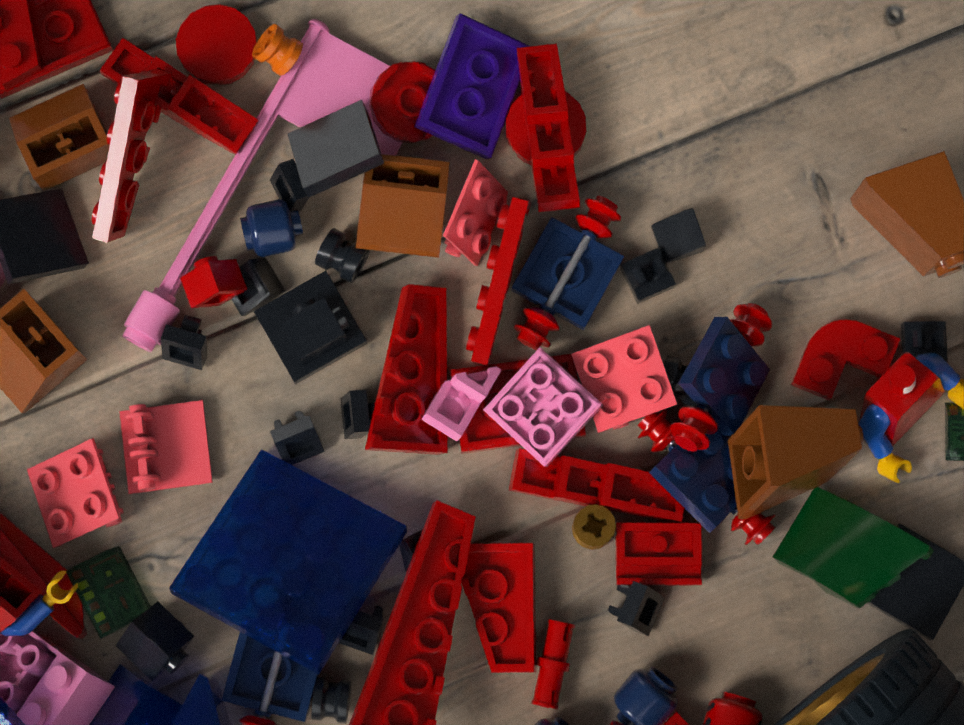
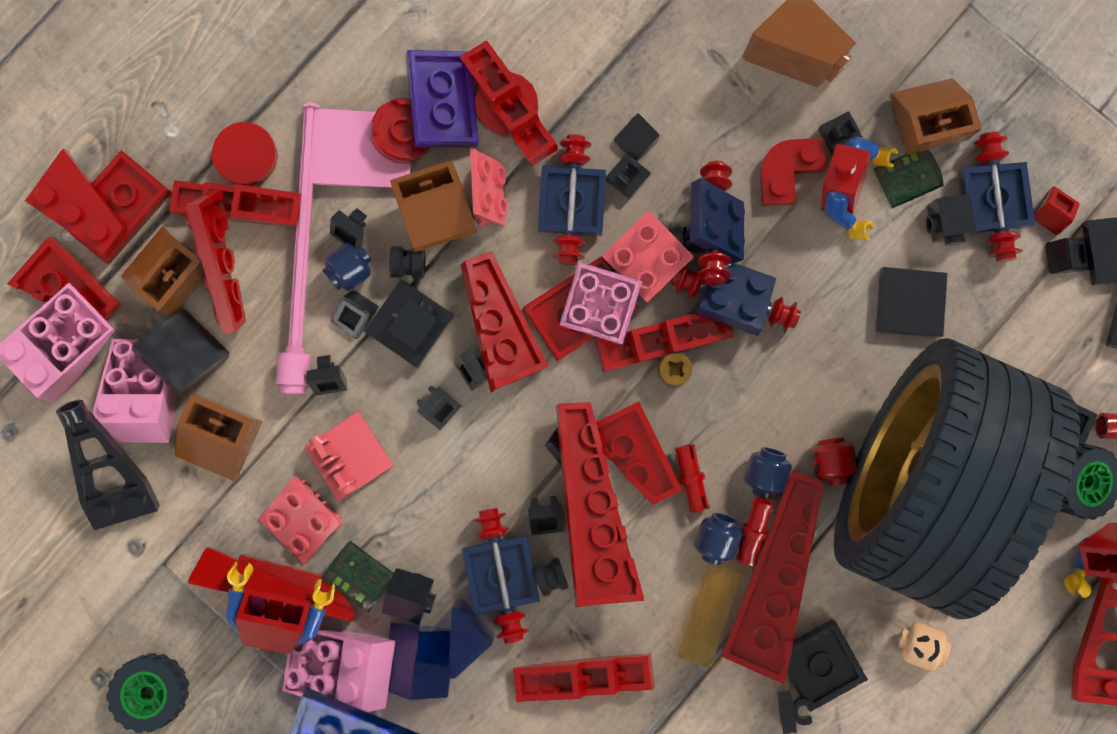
camera: 25 degrees left, 5 degrees up
(213, 282) = (325, 324): red plate -> none
(277, 49) = (289, 137): orange wheel -> none
(289, 561) = (475, 496): clear blue plate -> none
(335, 148) = (365, 188): black tile -> none
(458, 401) = (539, 326): bright pink slope -> none
(491, 298) = (523, 214): red wing -> none
(639, 607) = (733, 410): black tile -> none
(658, 554) = (728, 367): red plate -> none
(789, 452) = (787, 253): dark orange slope -> none
(847, 548) = (857, 301): dark green slope -> none

